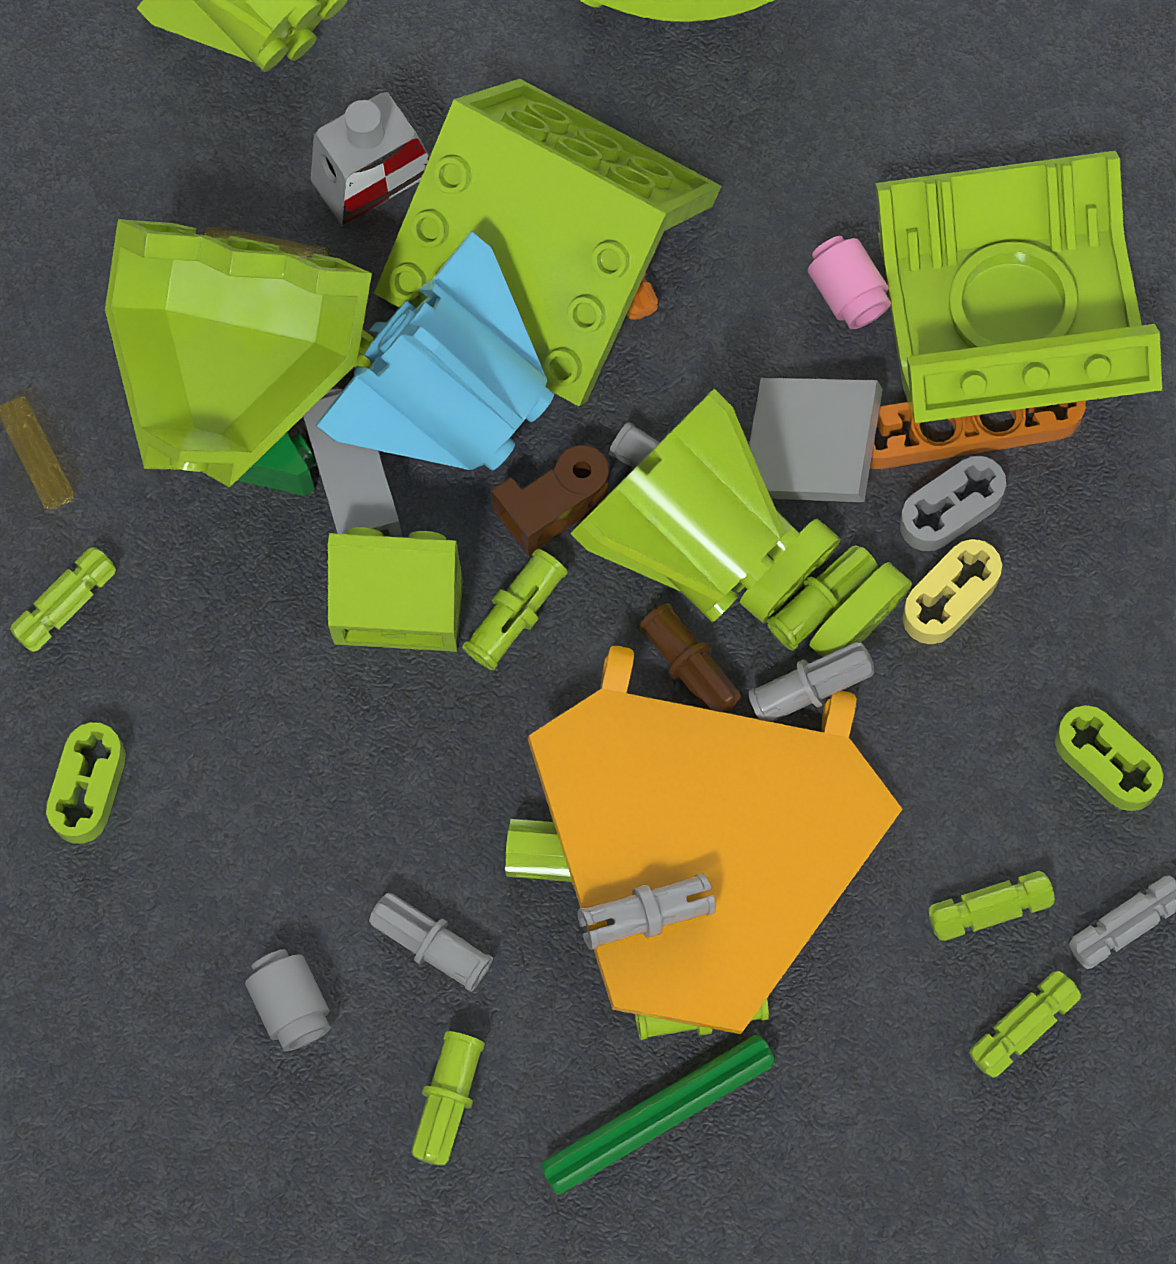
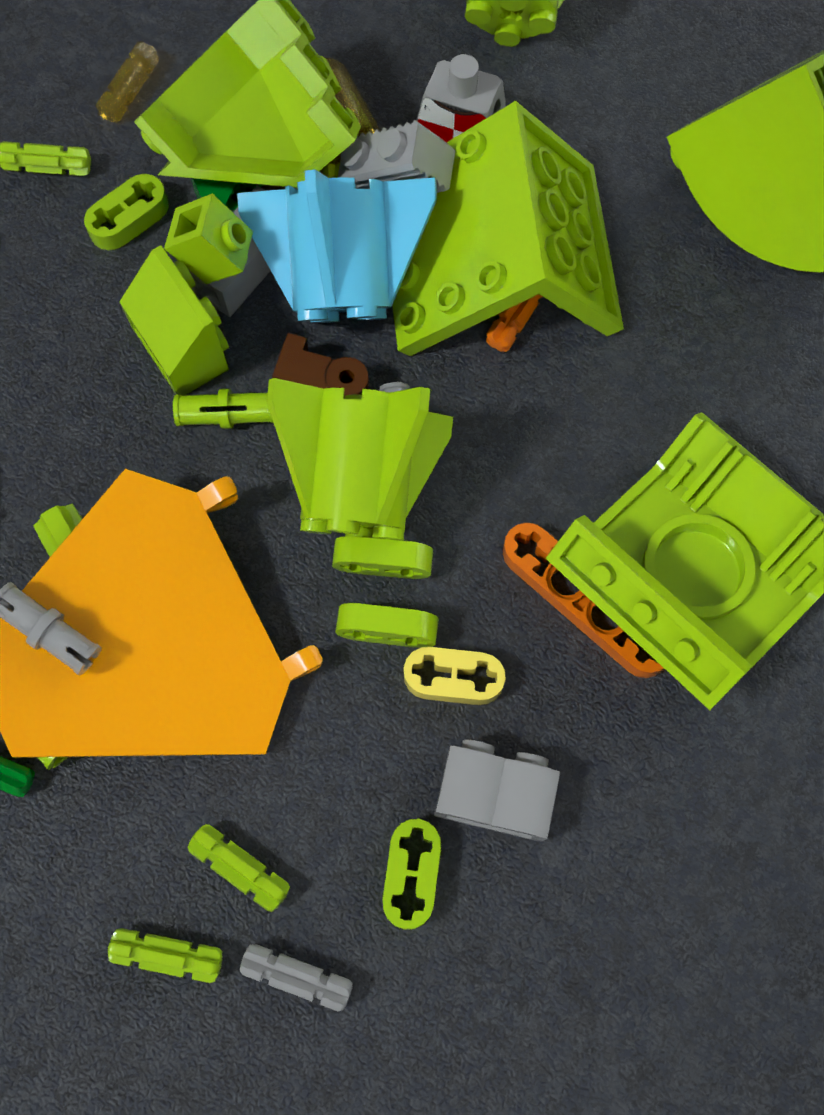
camera: 50 degrees right, 0 degrees up
(186, 558) = (126, 211): none -> lime beam
(354, 485) = (209, 239): none -> lime brick
(410, 253) = (398, 155): none -> light grey brick
(689, 659) = (270, 540): reddish brown axle -> none
(811, 682) = (307, 626): light grey axle -> none
(815, 437) = (488, 506): light grey tile -> none
(822, 597) = (381, 591): lime axle -> none
(849, 281) = (621, 450): bright pink brick -> none
(960, 514) = (521, 618): light grey beam -> none
(1091, 628) = (498, 791): none -> light grey brick

